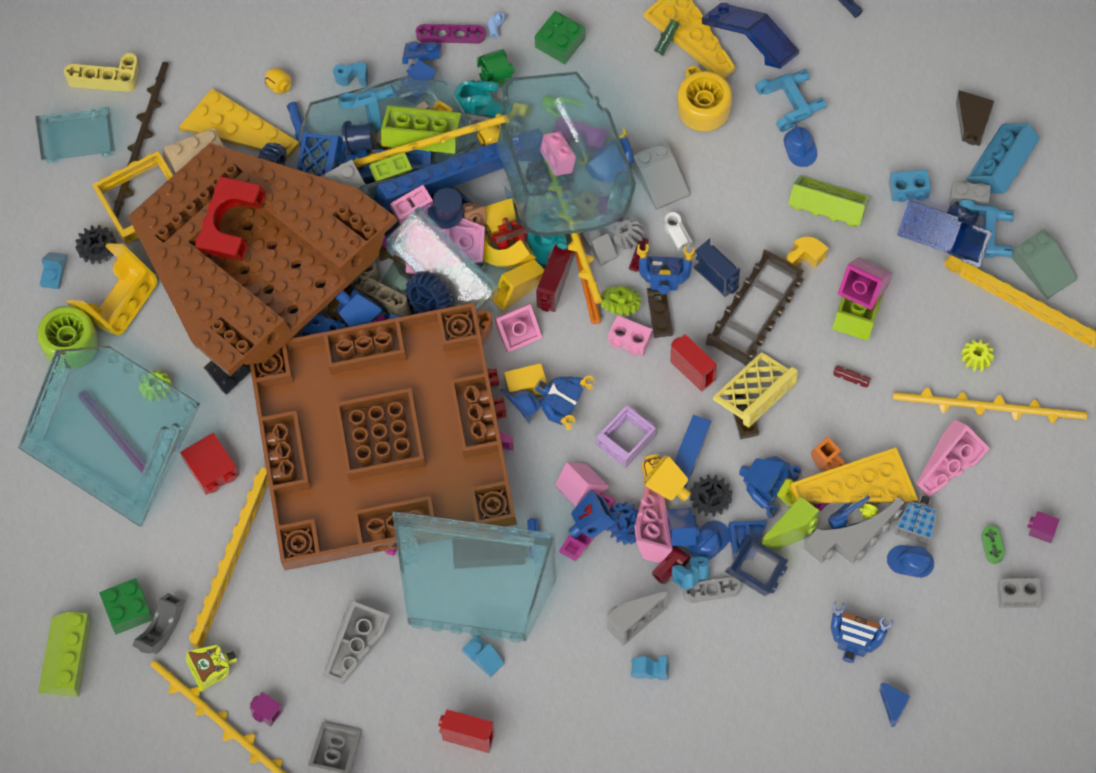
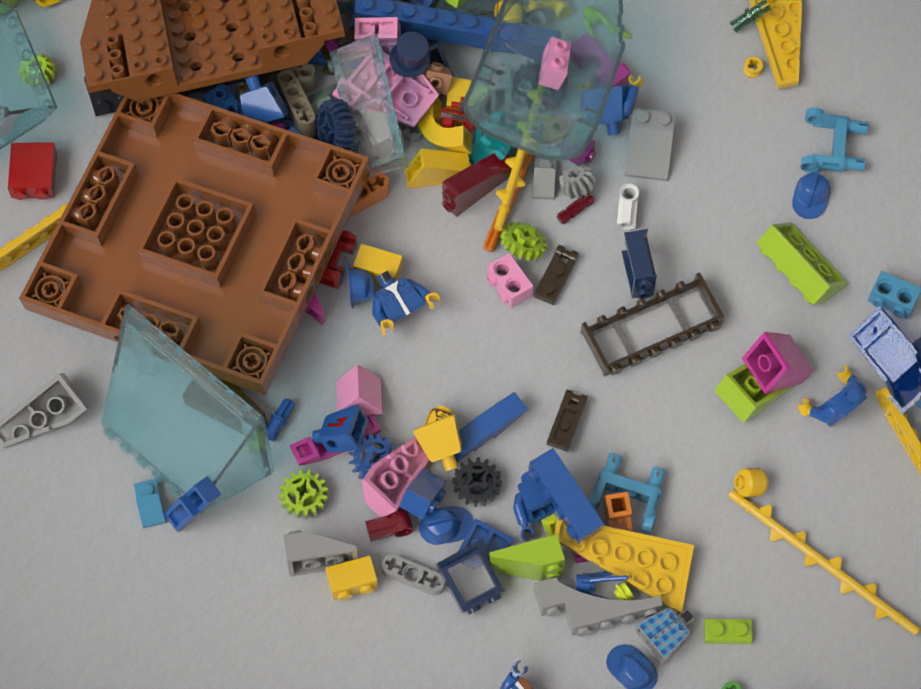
camera: 30 degrees right, 0 degrees up
(466, 730) = (77, 564): red brick -> none
(518, 328) = (407, 210): bright pink slope -> none
(521, 635) = (192, 503): none -> blue slope
(598, 576) = (311, 497): none -> lime gear
(615, 451) = (432, 357): lavender window -> none
(646, 668) = (295, 612): dark azure leg -> none
(665, 272) = (585, 238): blue torso -> none
(671, 619) = (351, 578): none -> yellow brick
(687, 578) = (411, 546): dark azure leg -> none
(693, 362) = (549, 341): red brick -> none
(704, 101) = (742, 96): yellow wheel -> none
(758, 29) = (844, 56): clear blue windscreen -> none
(767, 395) = (600, 418): light yellow fence -> none
(787, 465) = (565, 496): none -> blue brick
(807, 249) = (745, 298): yellow brick -> none
(836, 431) = (646, 493): none -> dark azure connector
(852, 376) = (702, 449): dark red axle -> none
(903, 379) = (751, 482): none -> yellow head
(926, 286) = (840, 403): none -> blue torso
(953, 454) = (746, 589): bright pink wedge -> none
(958, 494) = (728, 631): none -> lime plate
(982, 350) = (847, 495): neon yellow gear -> none

